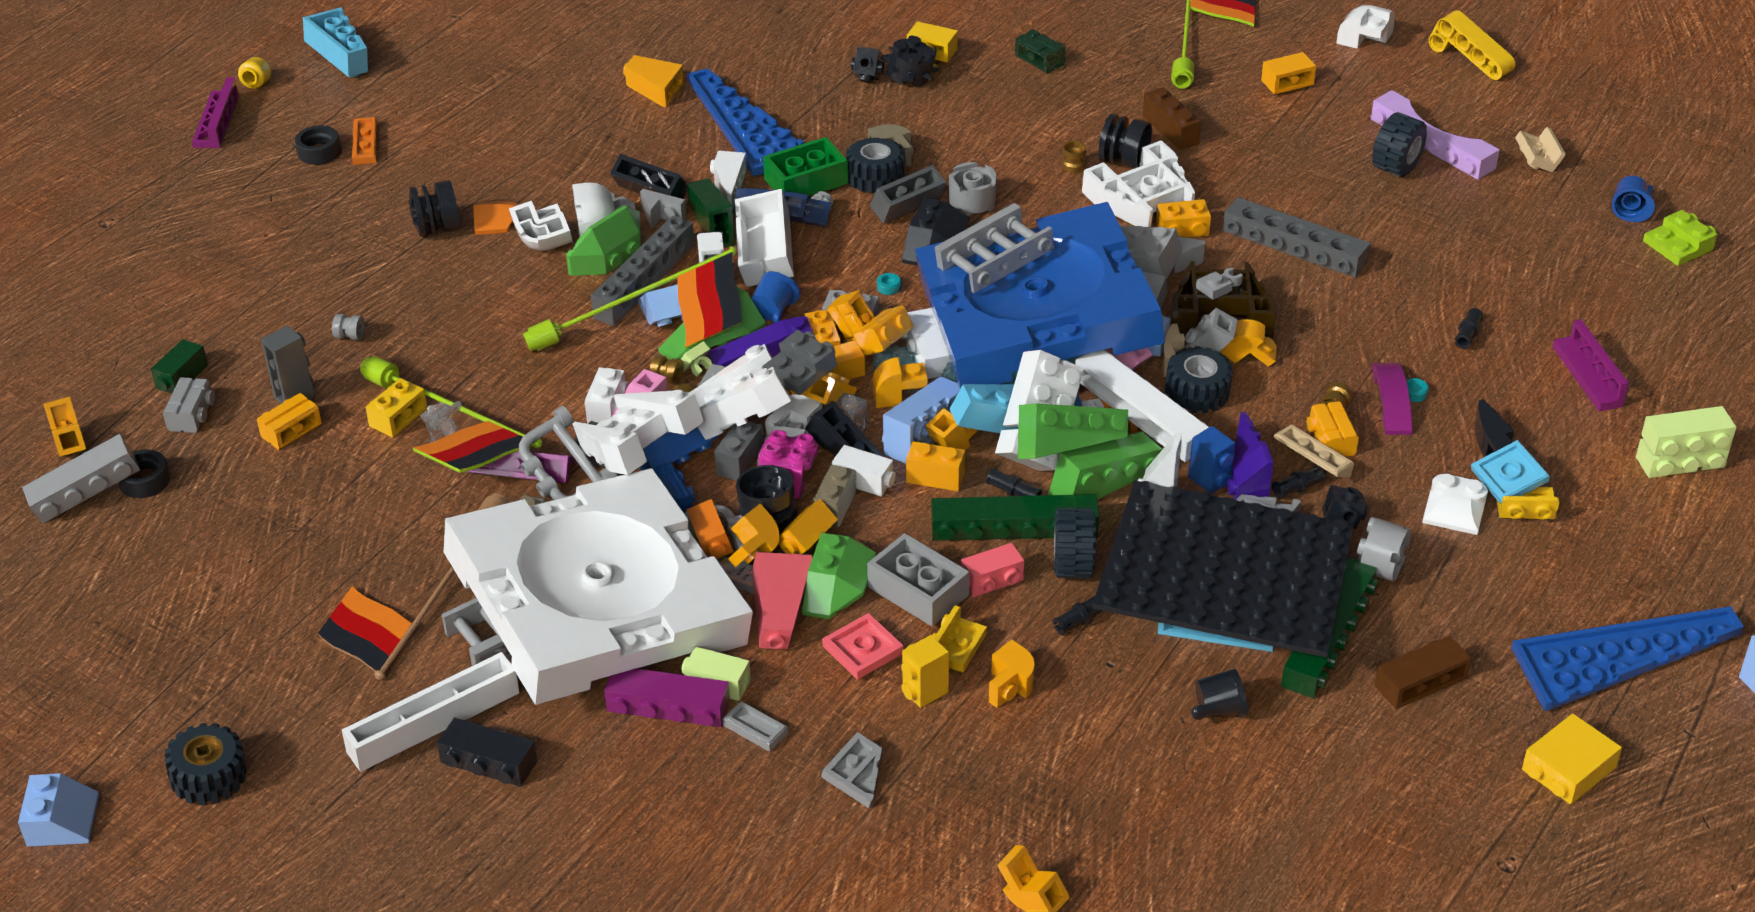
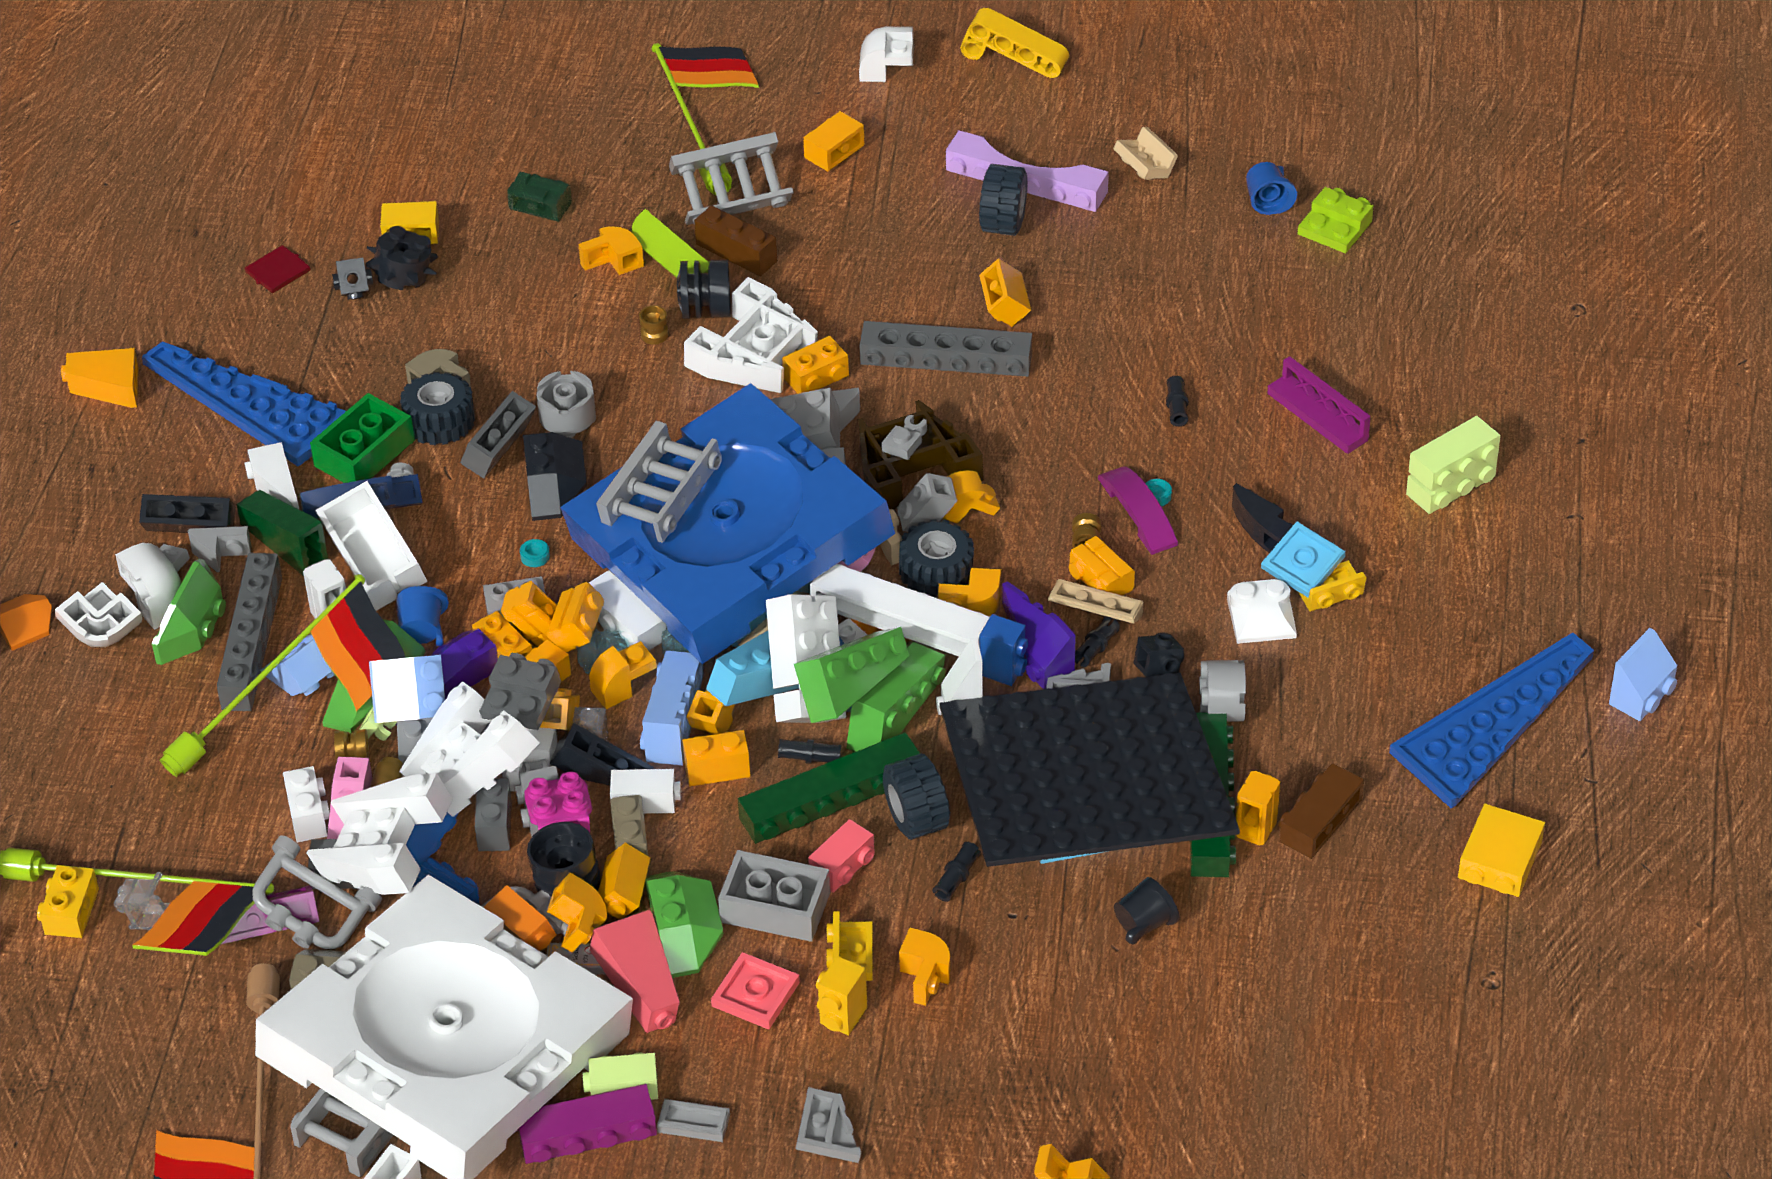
camera: 25 degrees left, 5 degrees up
(722, 336) = (406, 688): none -> slope
(821, 48) = (277, 269): none -> dark red piece
(1075, 97) = (613, 246): none -> light orange brick
(1110, 100) = (664, 244): none -> lime brick
(1198, 55) = (737, 153): none -> light grey fence
(1222, 414) = (979, 596): none -> light orange brick
(1362, 648) = (1257, 807): none -> light orange brick
(1365, 210) = (1005, 292): none -> light orange brick

